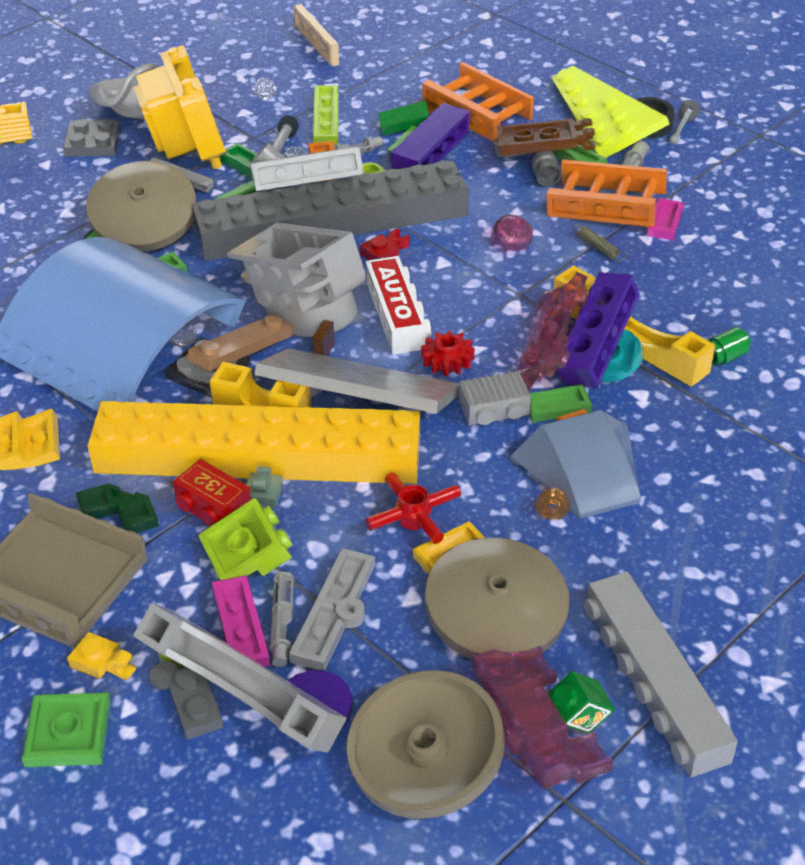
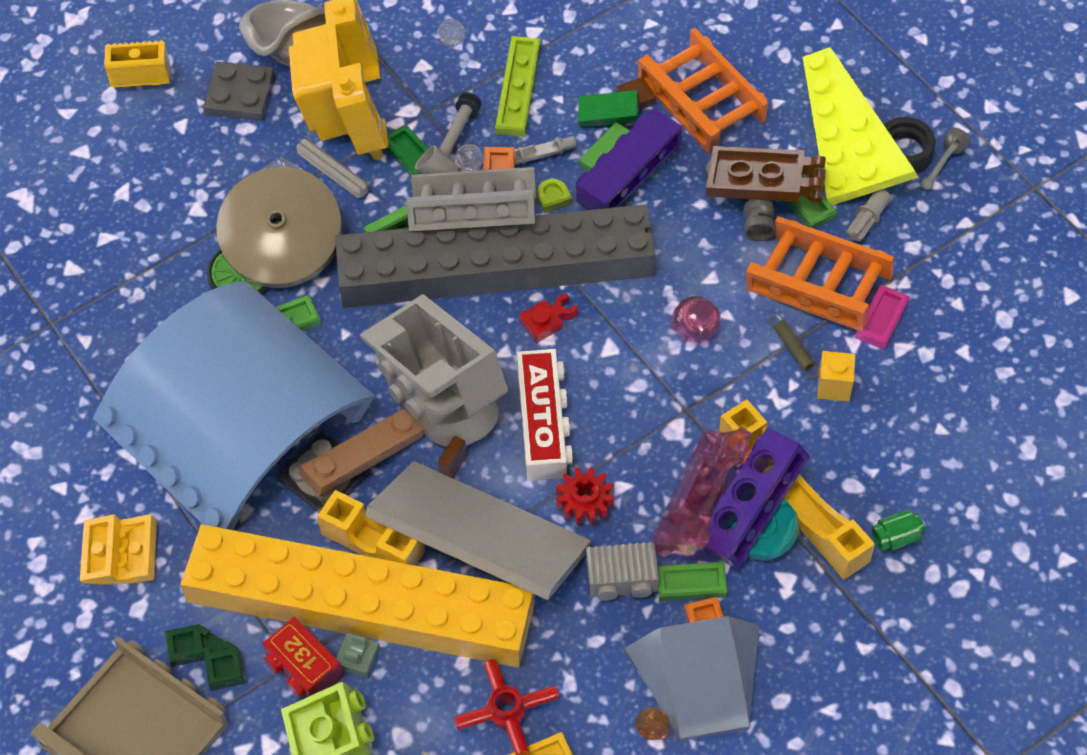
camera: 10 degrees right, 15 degrees up
(641, 253) = (836, 376): none -> yellow brick

